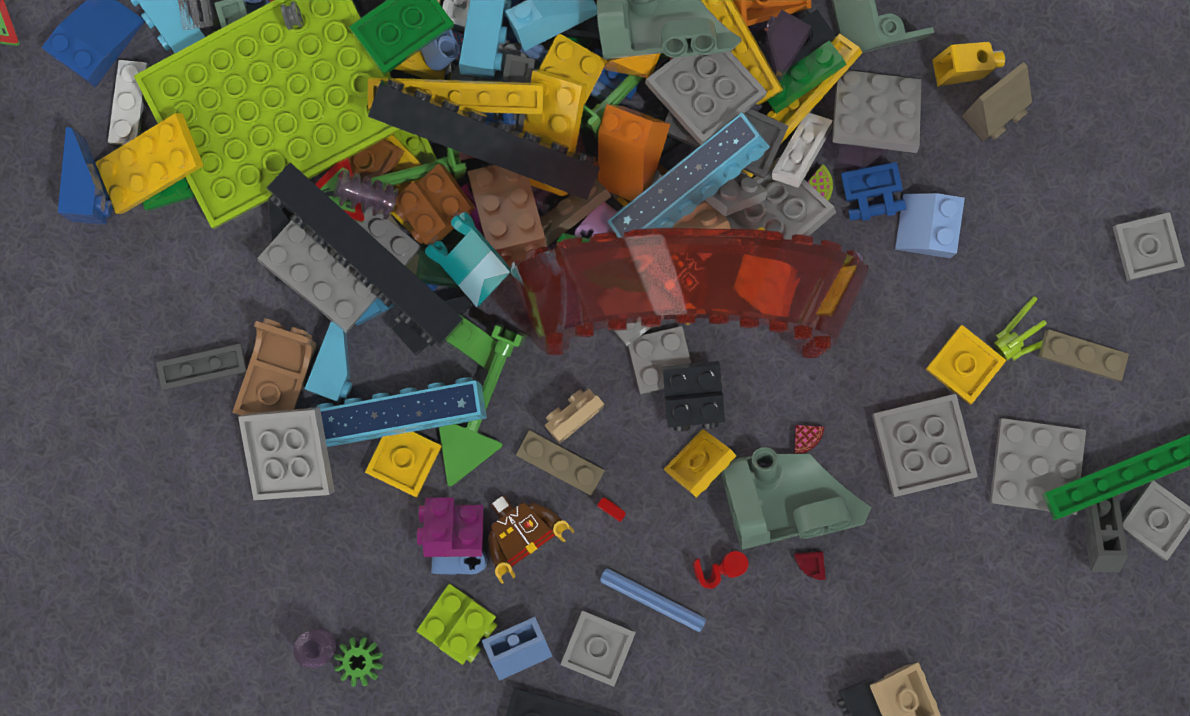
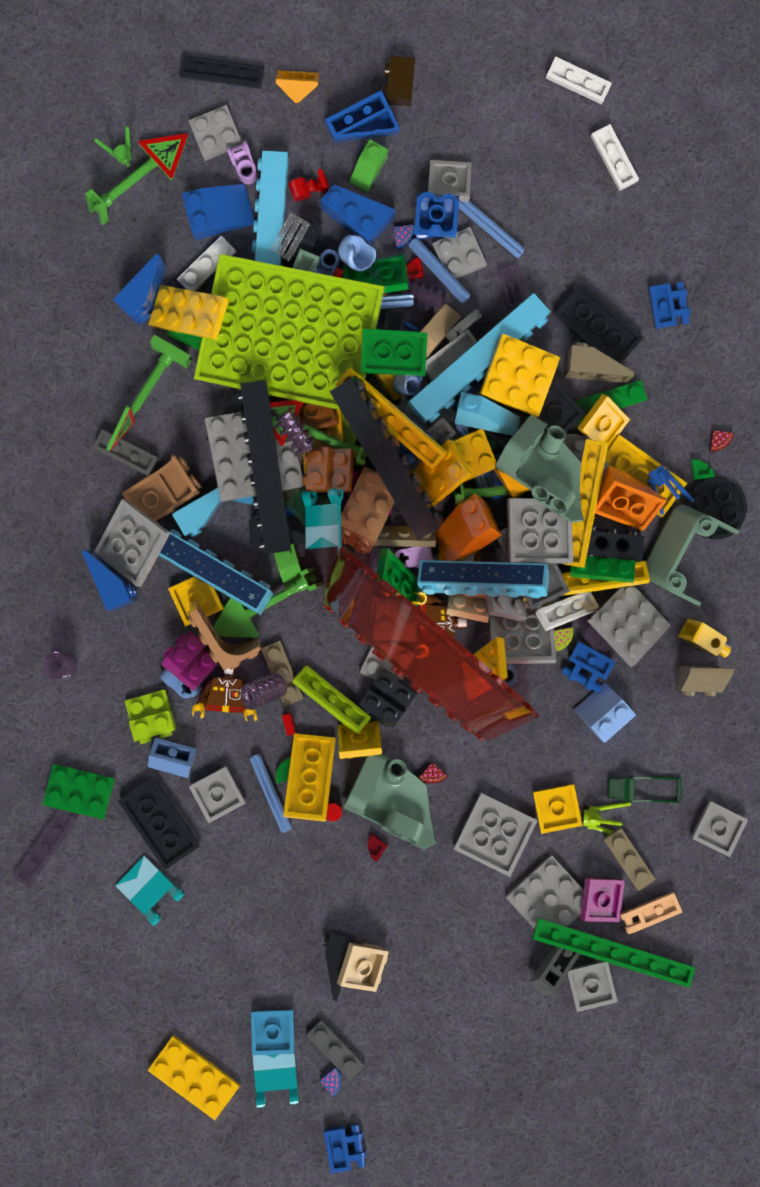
camera: 50 degrees right, 5 degrees up
(163, 226) = (168, 354): none -> bright green piece
(292, 15) = (336, 294): dark grey bush -> none
(305, 517) = (111, 585): none -> blue slope
(360, 671) = (75, 698): bright green gear -> none
(486, 488) = (222, 652): none -> medium nougat bracket
(555, 495) = (263, 691): none -> clear purple piece
(565, 422) = (304, 654): tan plate -> none
(635, 446) = (331, 699): none -> lime plate
(649, 563) = (283, 771): none -> green tile
(681, 546) = (309, 777): none -> yellow plate
(784, 41) = (608, 540): clear purple slope -> none
(1017, 284) = (625, 789): none -> dark green piece
(1092, 419) = (602, 899): none -> magenta plate
(1154, 392) = (651, 912): none -> light nougat plate

